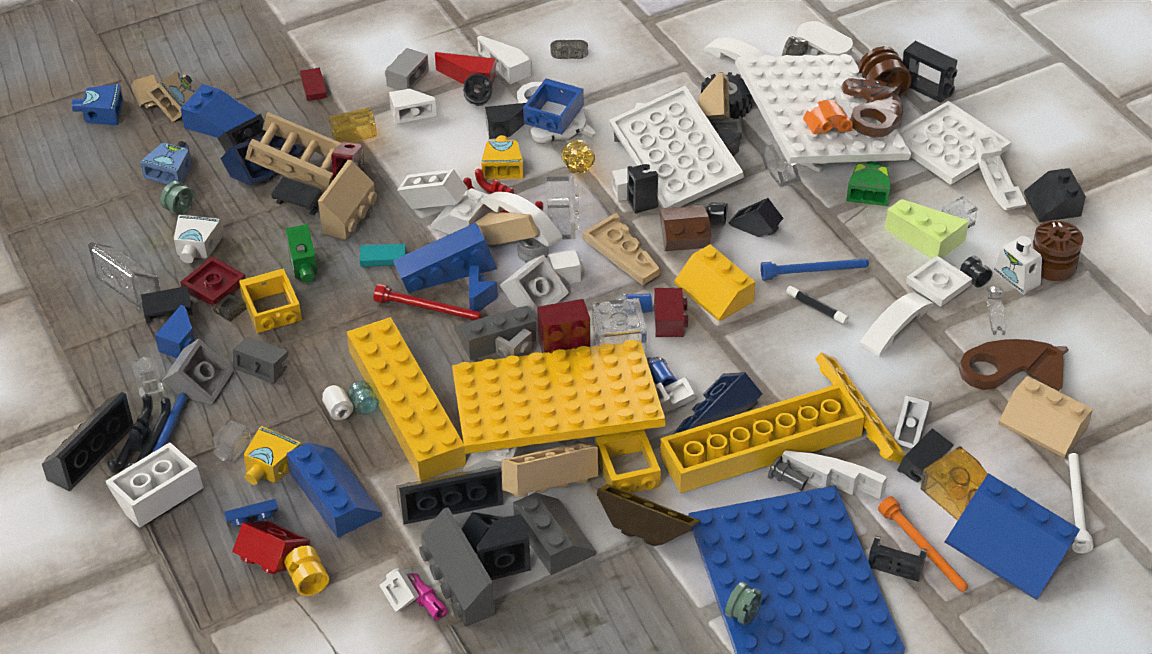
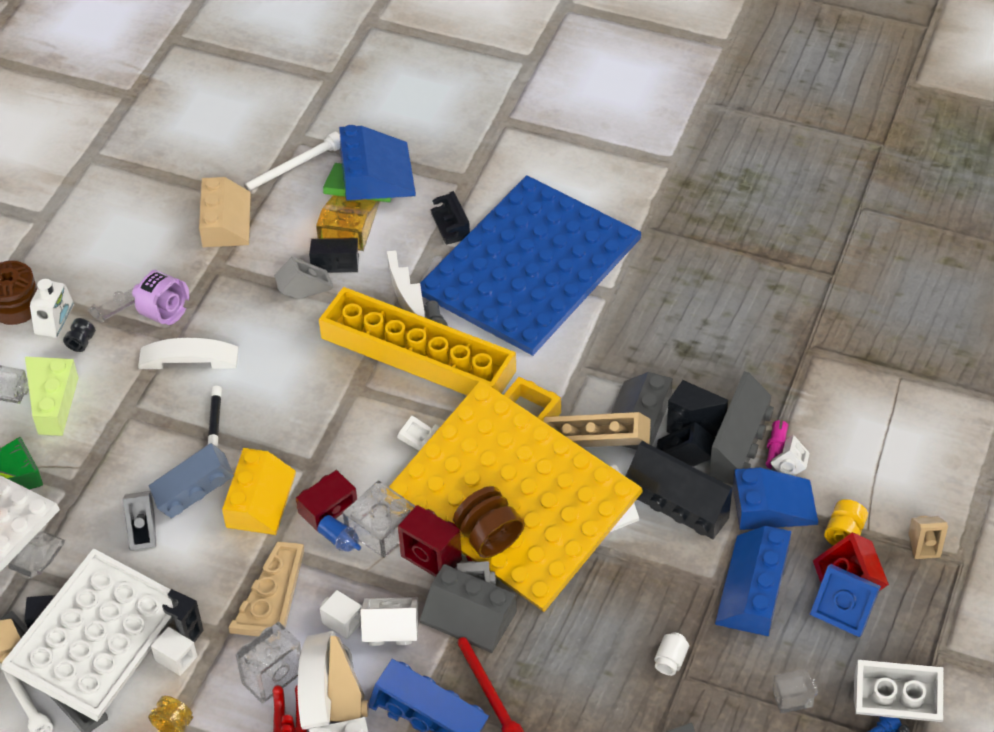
camera: 130 degrees left, 5 degrees up
(236, 606) = (927, 536): none -> tan slope
(267, 456) = (776, 648): yellow torso -> none
(363, 397) = (646, 639): clear light blue wheel -> none
(382, 545) = (772, 499): none -> blue slope
(406, 399) = (614, 609): yellow brick -> none
(480, 291) = (439, 655): blue slope -> none
(534, 344) = (488, 521): none -> reddish brown wheel
(643, 517) = (563, 357): dark brown wedge -> none
(660, 371) = (403, 457): blue piece -> none
(685, 228) = (205, 554): reddish brown slope -> none
(716, 212) = (156, 554): black piece -> none
(724, 398) = (395, 398): dark blue wedge -> none
(743, 603) = (593, 249): sand green wheel -> none
(753, 245) = (191, 480): none -> sand blue brick
(771, 270) = (155, 437): blue piece -> none
(874, 426) = (303, 339): yellow plate -> none
(891, 509) = (407, 246): orange piece -> none
(939, 281) = (112, 353): white plate -> none
(967, 322) = (161, 297): none -> lavender brick
(1011, 356) = (160, 252): reddish brown animal -> none

